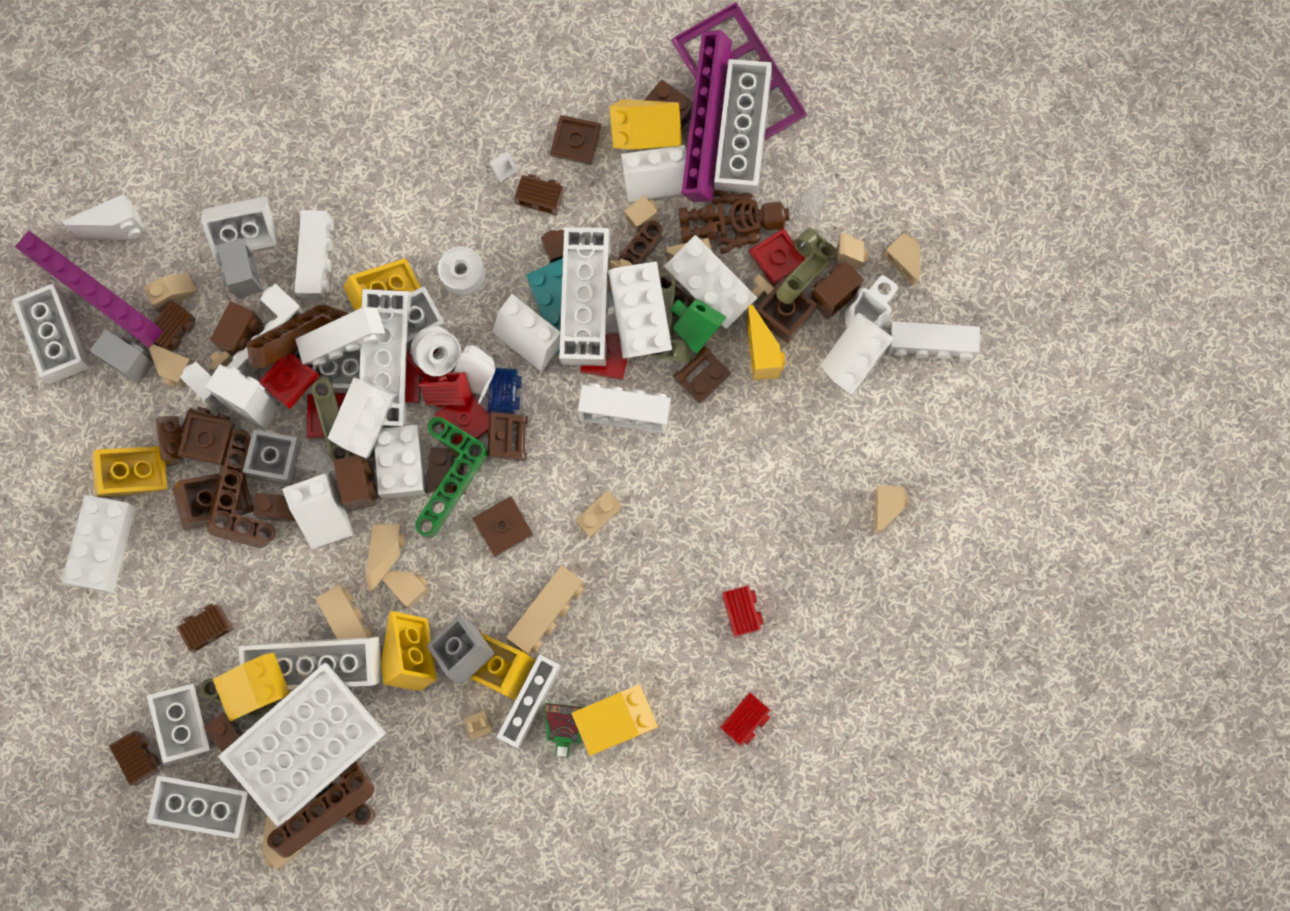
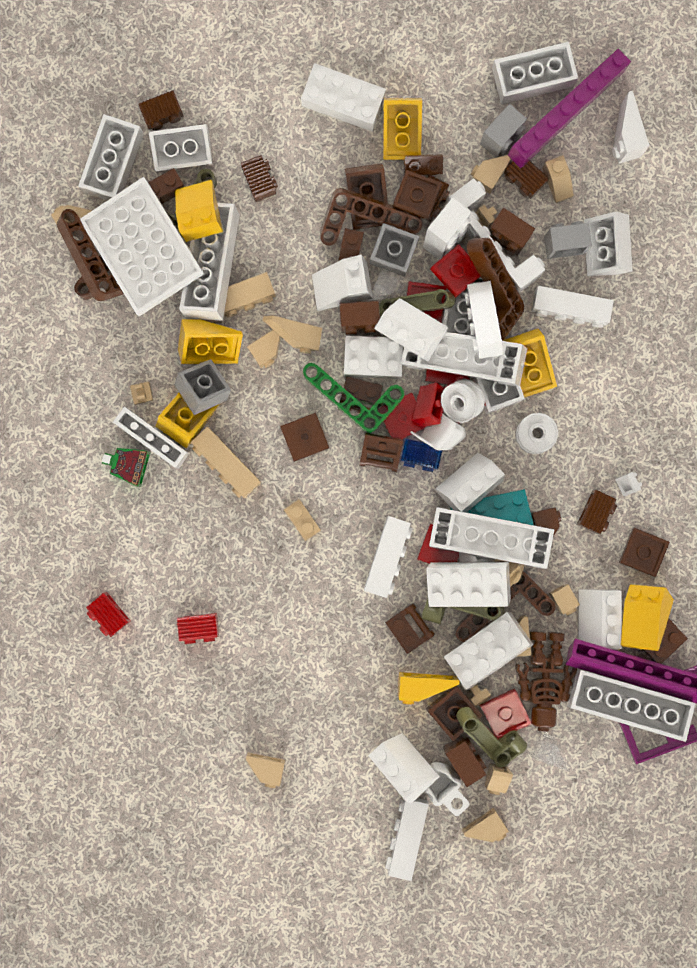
camera: 95 degrees right, 10 degrees up
(614, 720) = (122, 506): yellow slope -> none
(696, 323) = (452, 632): green torso -> none

